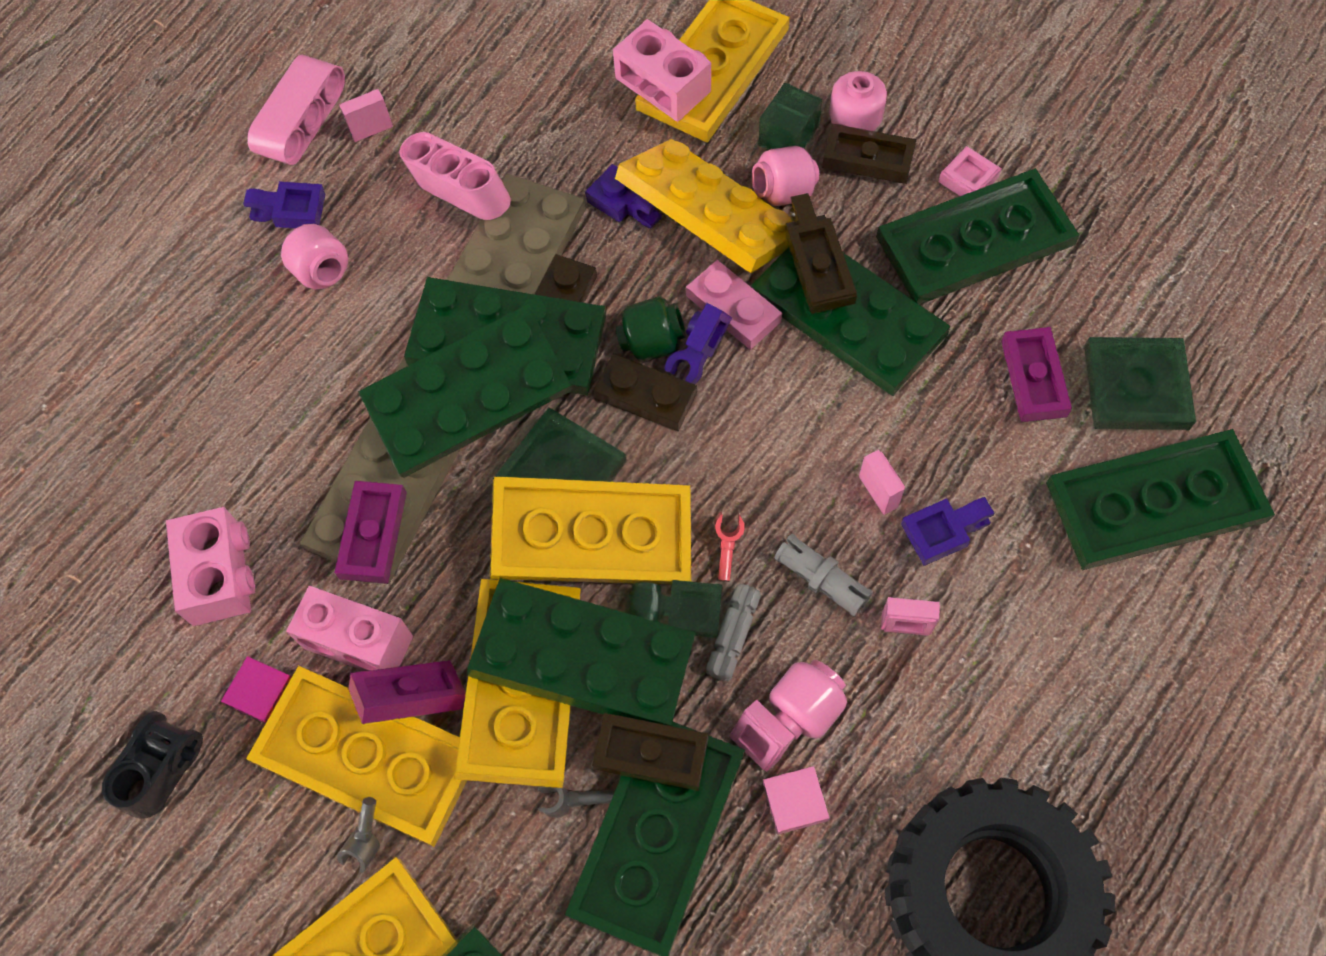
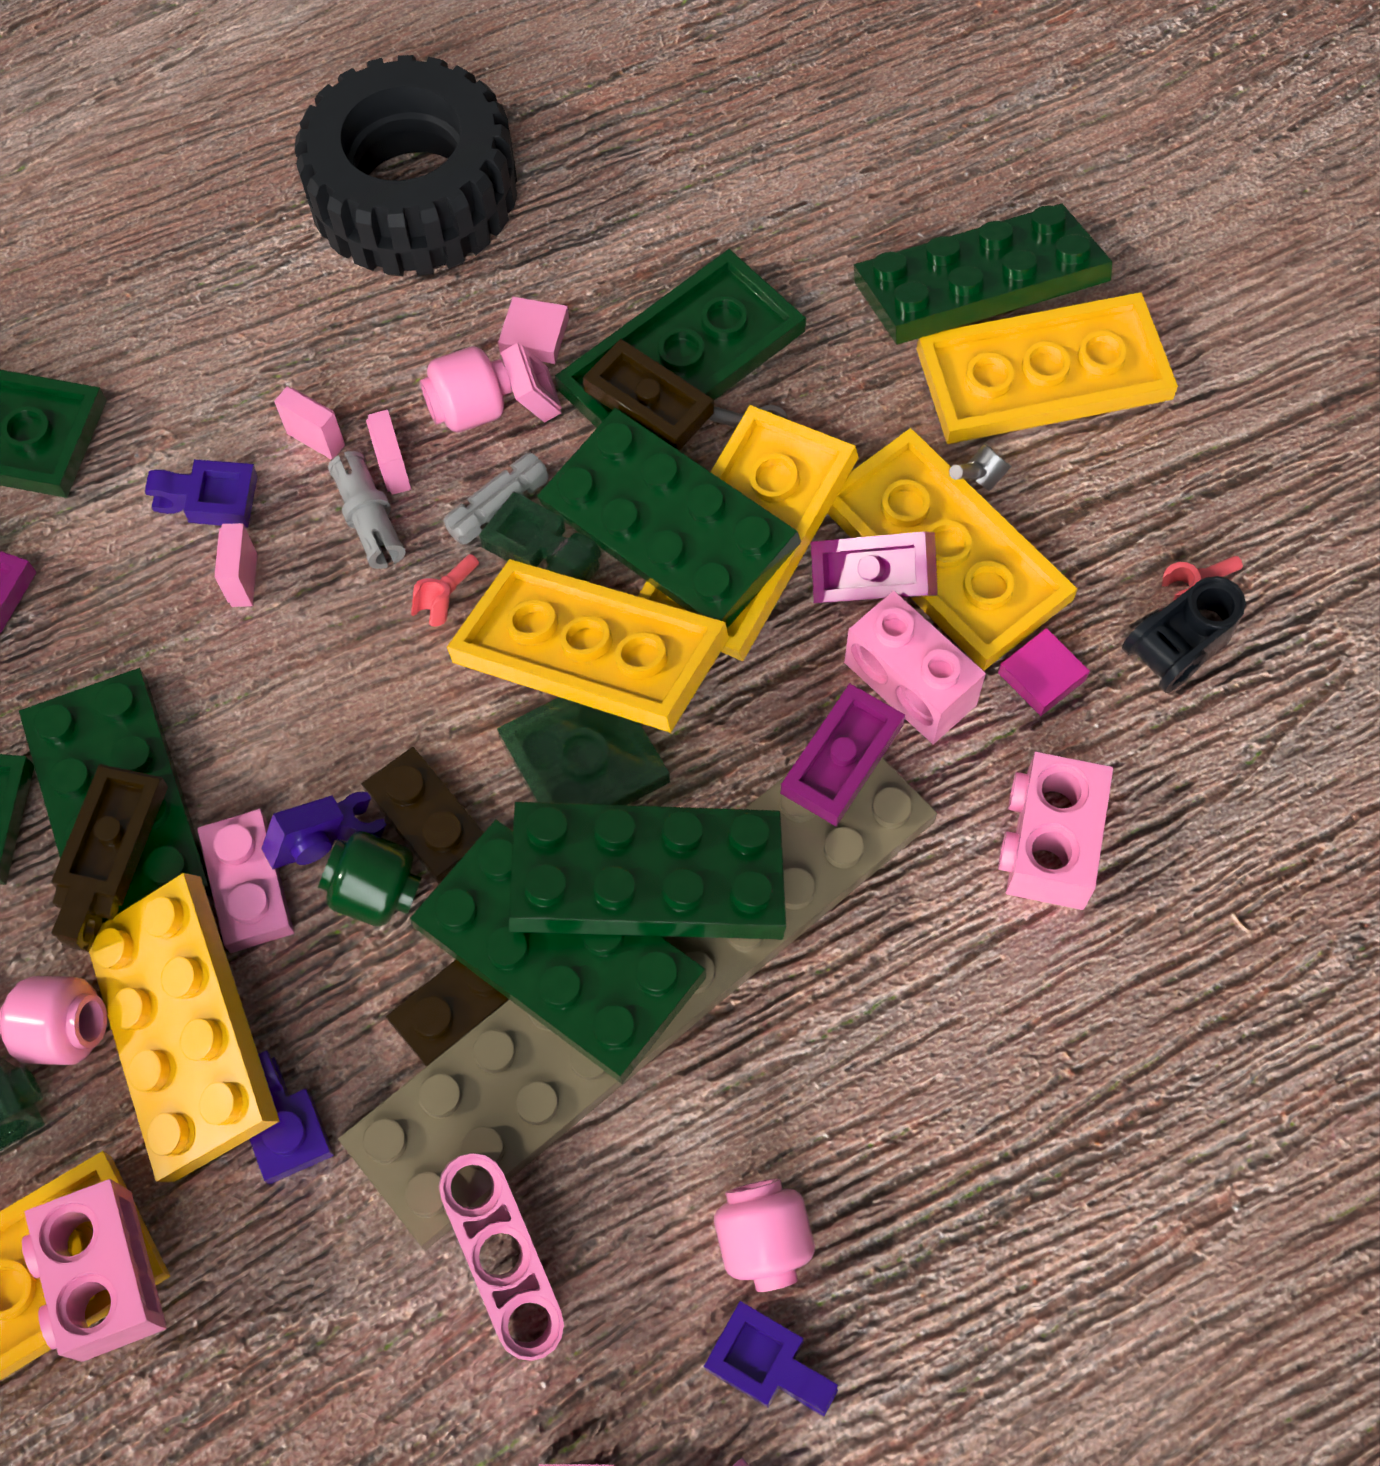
camera: 155 degrees left, 0 degrees up
(157, 829) = (1191, 575): none -> coral hand
(833, 620) = (388, 452): none -> bright pink tile

